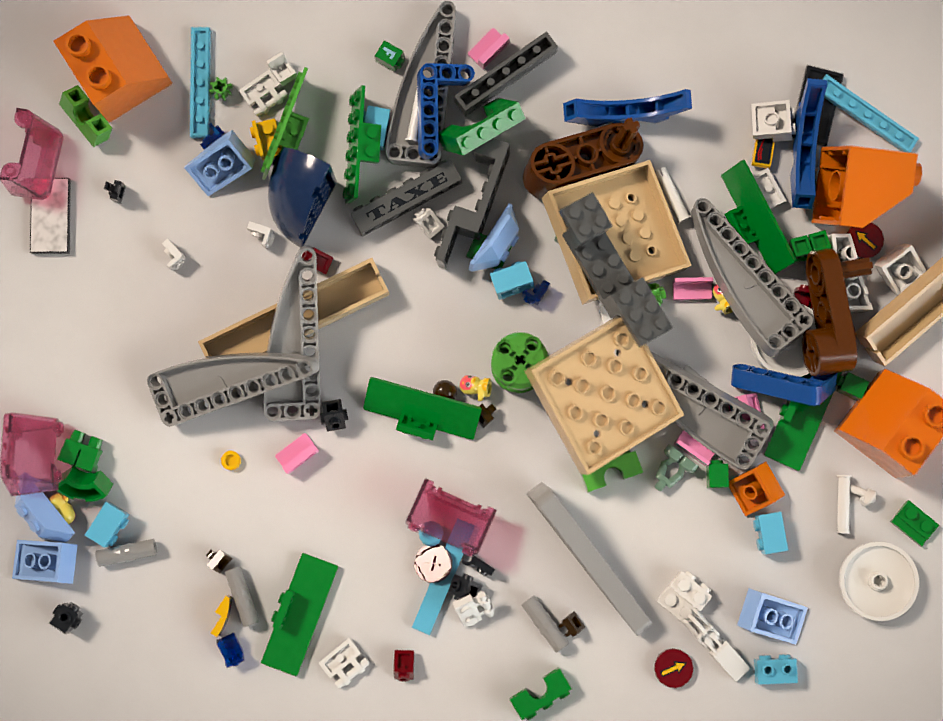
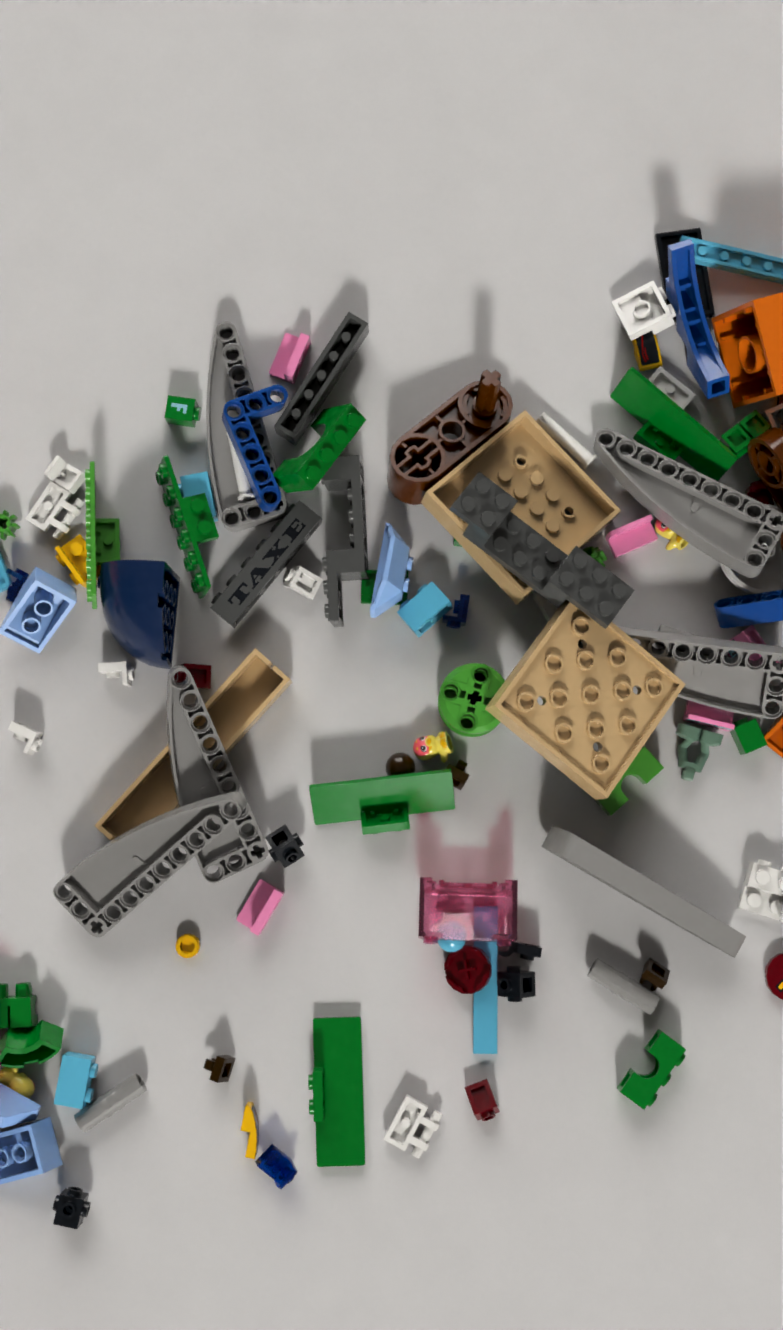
camera: 15 degrees left, 0 degrees up
(242, 596) = (264, 1098): light grey axle -> none
(471, 609) = (533, 1005): white plate -> none
(650, 109) = (497, 355): blue arch -> none

